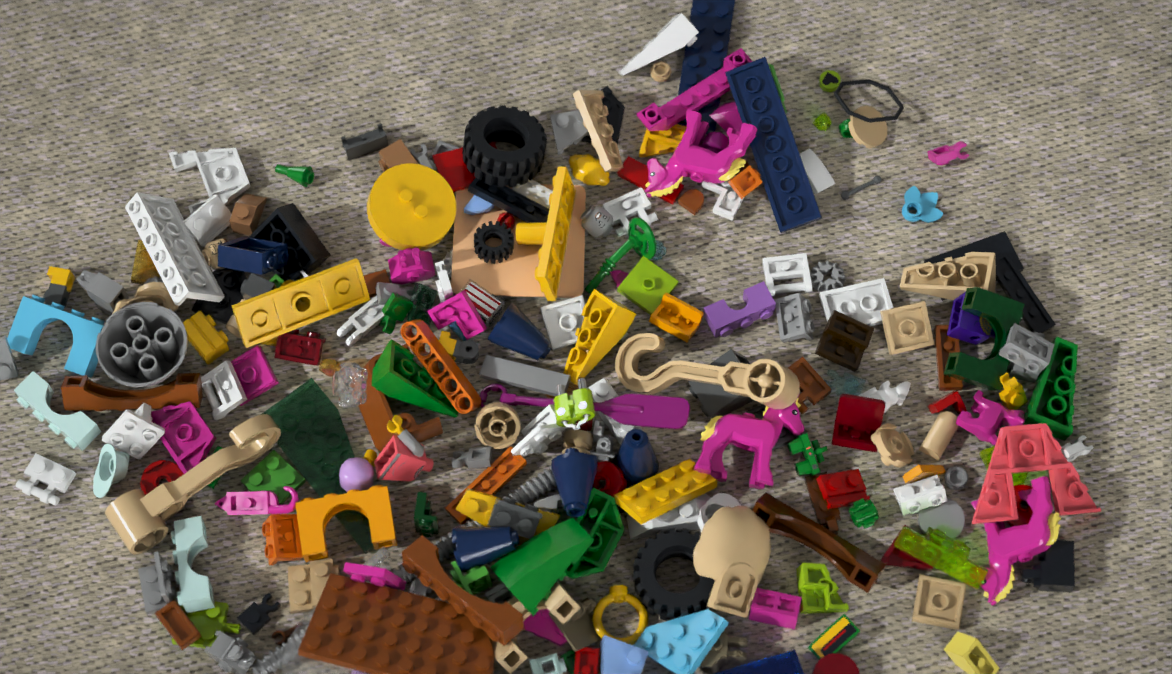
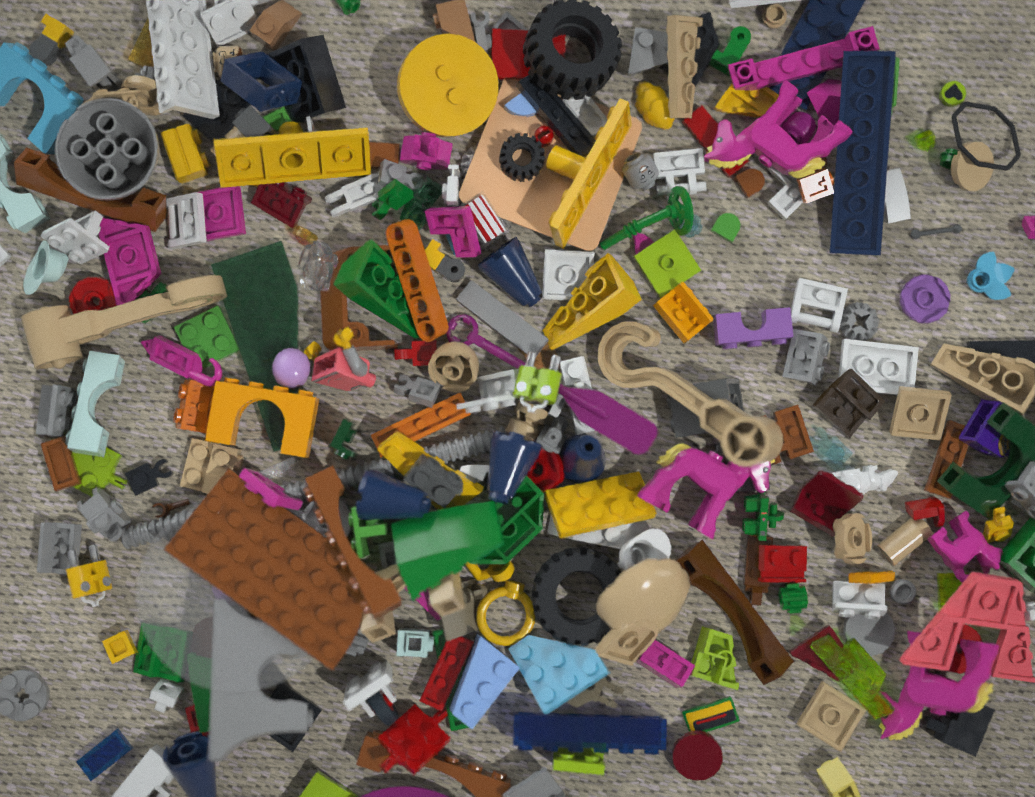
camera: 15 degrees right, 20 degrees up
(463, 426) = (419, 353): none -> red plate
(599, 582) = (497, 572): none -> yellow plate
(638, 102) = (736, 46): none -> green leg
(686, 241) = (726, 227): none -> bright green tile
(879, 245) = (918, 295): none -> medium lavender tile

